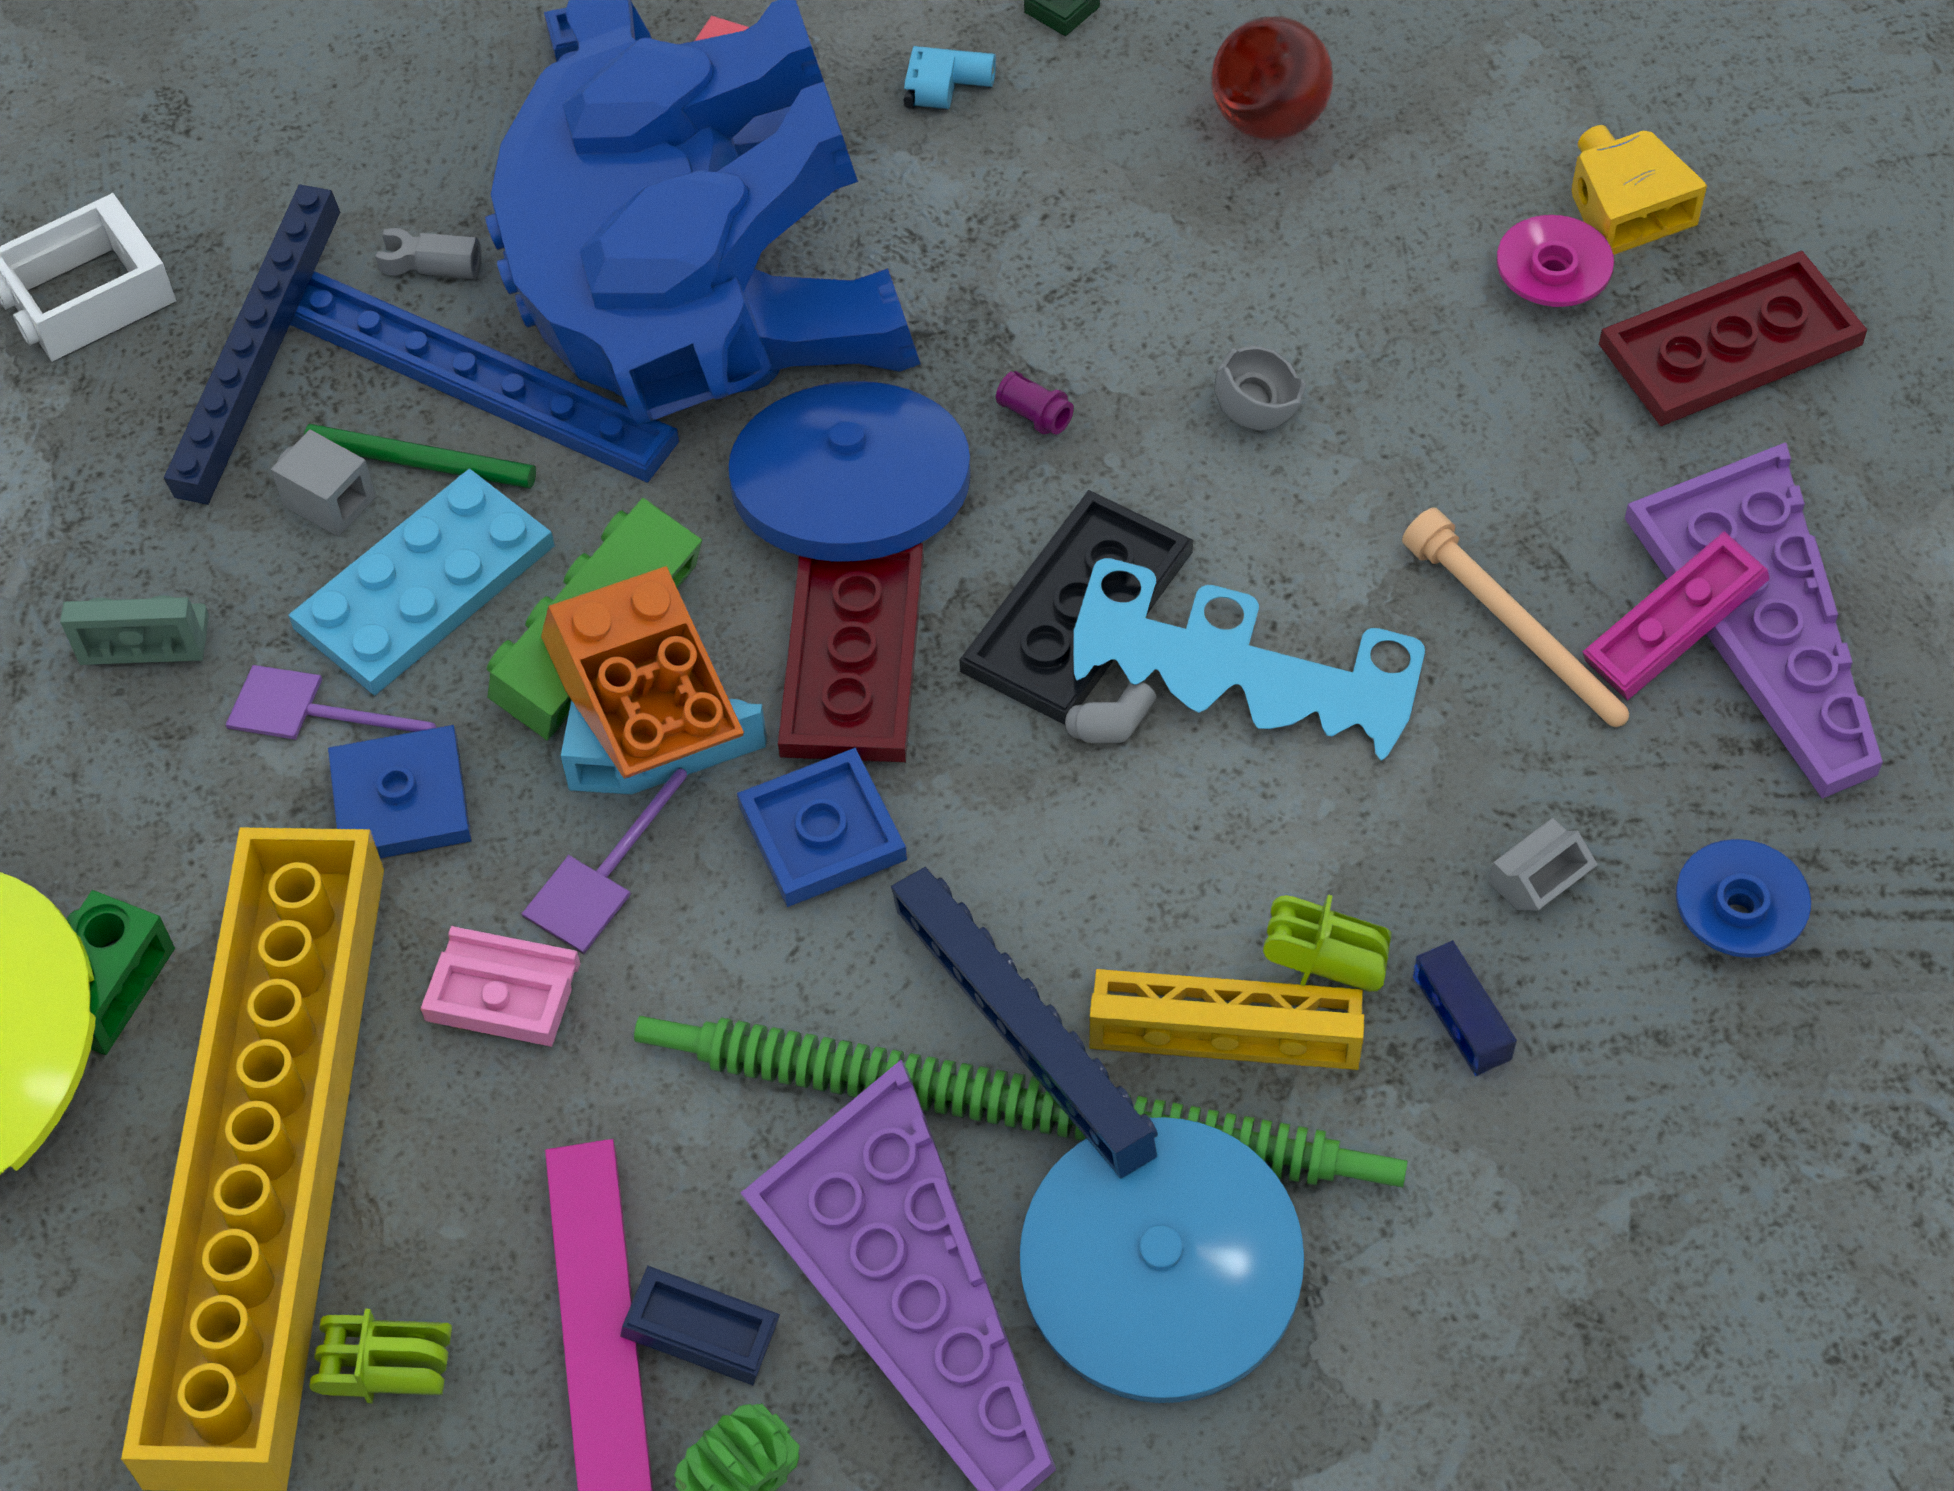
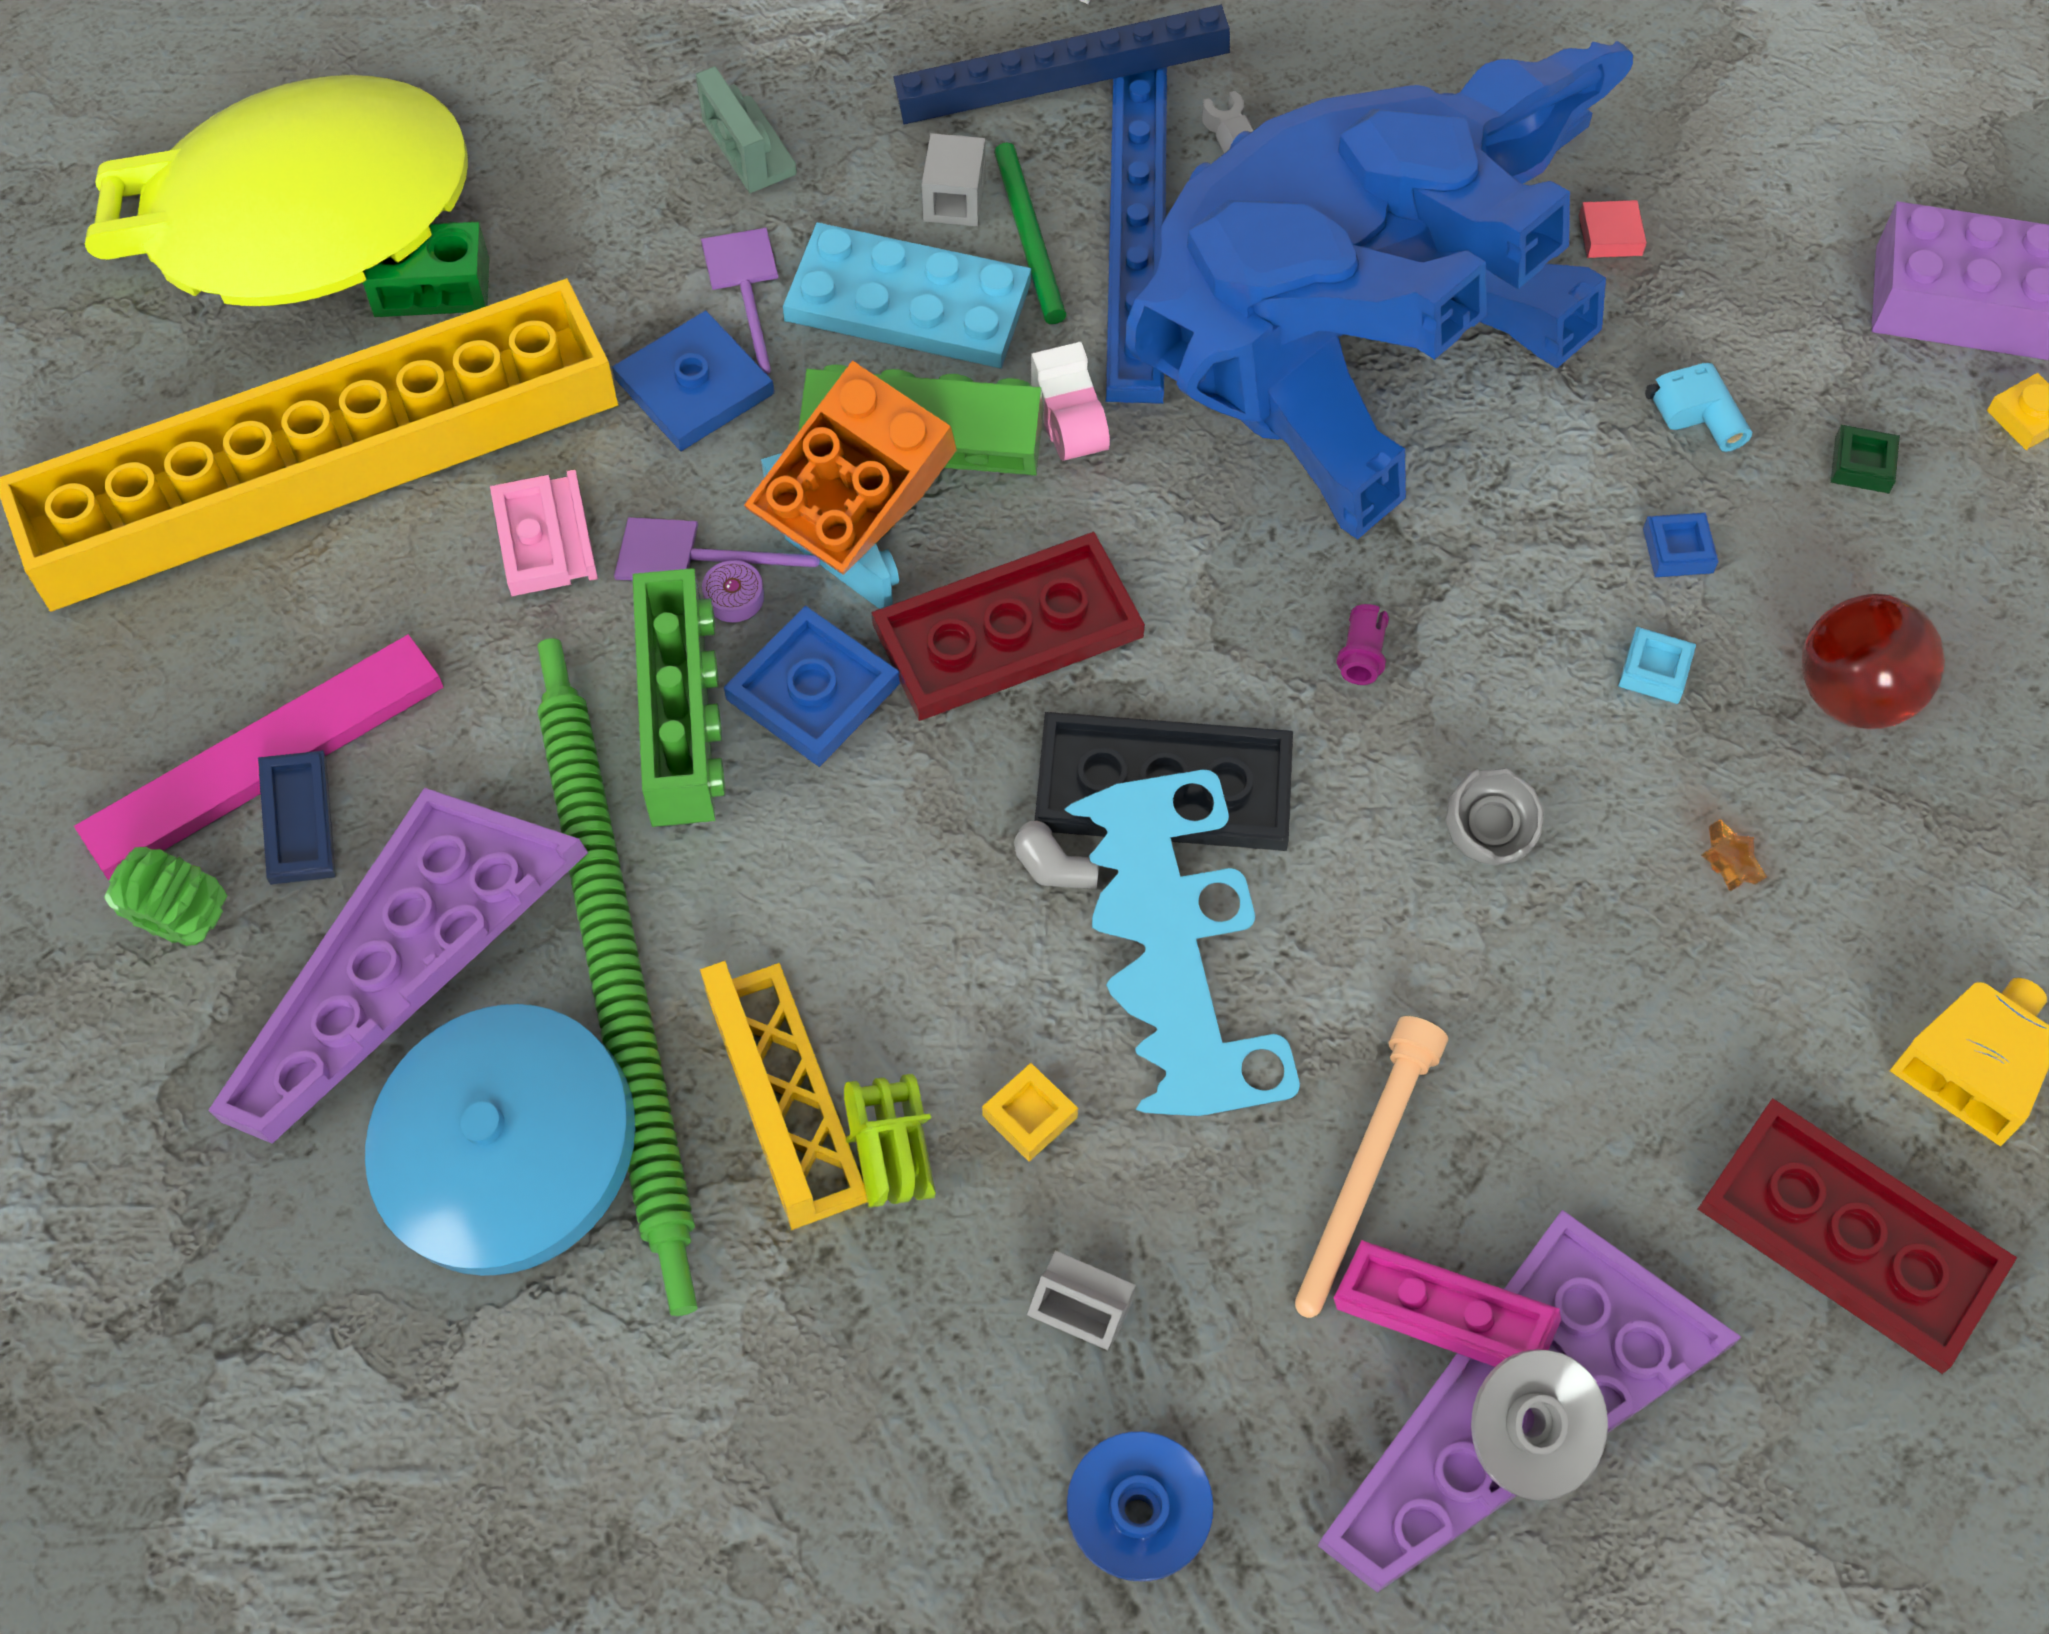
camera: 60 degrees right, 5 degrees up
(389, 1357) = (172, 602): lime arm -> none
(621, 488) = (1070, 404): none -> leg
(669, 854) = (734, 590): none -> medium lavender tile
(776, 933) = (673, 698): none -> bright green brick
(849, 471) = (1193, 535): blue dish -> none
(1025, 1023) = (668, 922): dark blue piece -> none
(1066, 155) = (1680, 545): none -> blue tile
(1170, 223) = (1657, 665): none -> medium azure tile
(1349, 833) = (1029, 1112): none -> yellow plate
(1376, 257) = (1733, 856): none -> clear orange piece
(1464, 1008) = (890, 1292): clear blue piece -> none
(1555, 260) = (1852, 1001): dark pink dish -> none
(1811, 587) = (1566, 1430): none -> light grey dish

